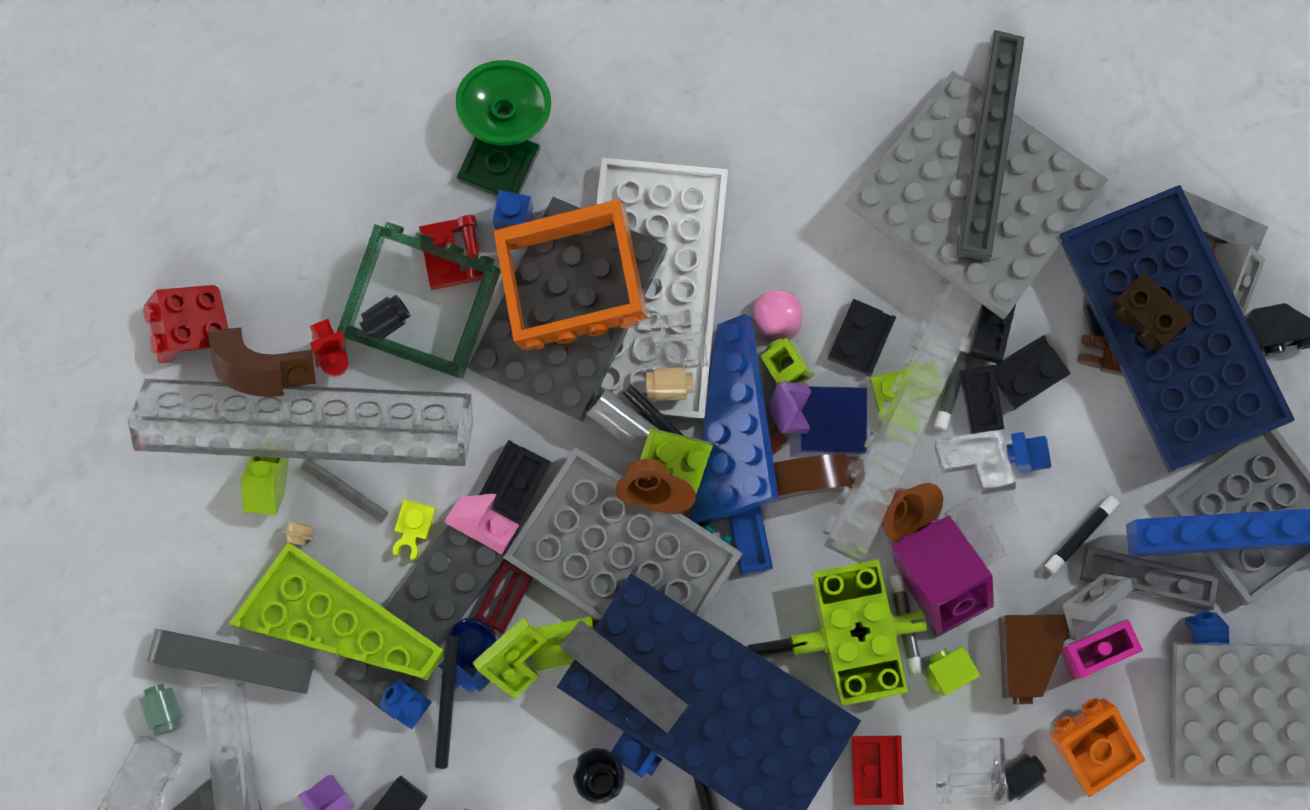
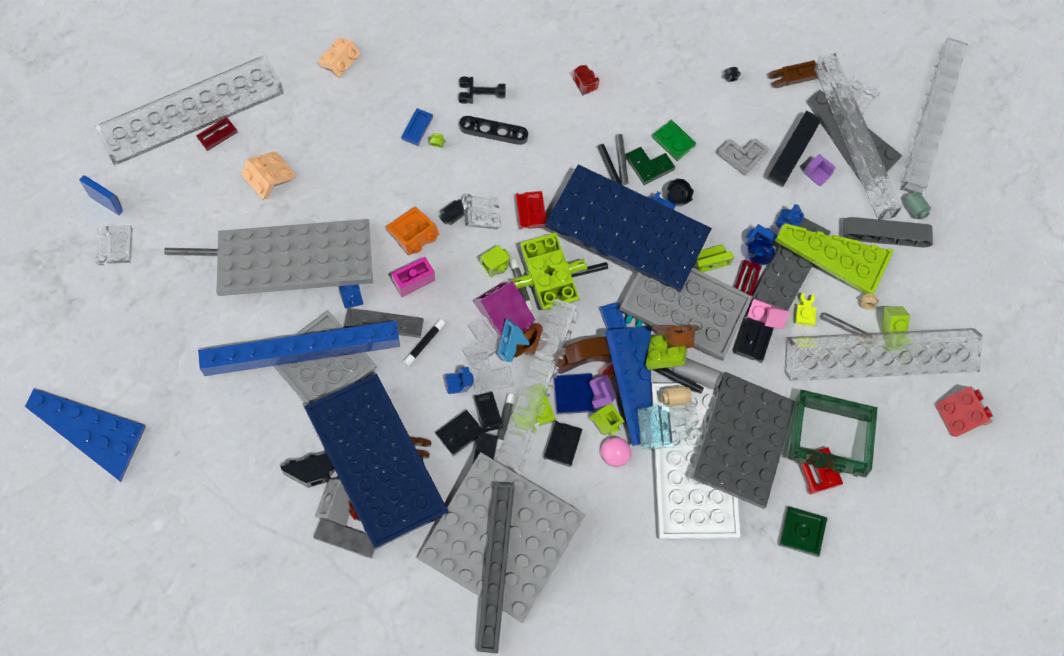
camera: 165 degrees right, 10 degrees down
(257, 372) = (915, 375): reddish brown arch -> none
(328, 349) = (879, 398): red hips -> none
(384, 318) = (851, 413): black brick -> none
(446, 701) = (768, 219): black bar -> none
(503, 88) = (823, 568): green dish -> none
(505, 659) = (737, 240): lime plate -> none
(512, 209) = (788, 494): blue brick -> none
(557, 227) = (716, 461): orange window -> none
(624, 676) = (677, 232): flat silver tile -> none
(716, 326) = (655, 427): none -> clear light blue brick
(937, 510) = (510, 338): none -> dark azure slope
(1029, 654) = (451, 275): reddish brown slope -> none
(1095, 604) = (417, 299): light grey panel -> none
(1150, 313) = (393, 459): dark brown brick -> none

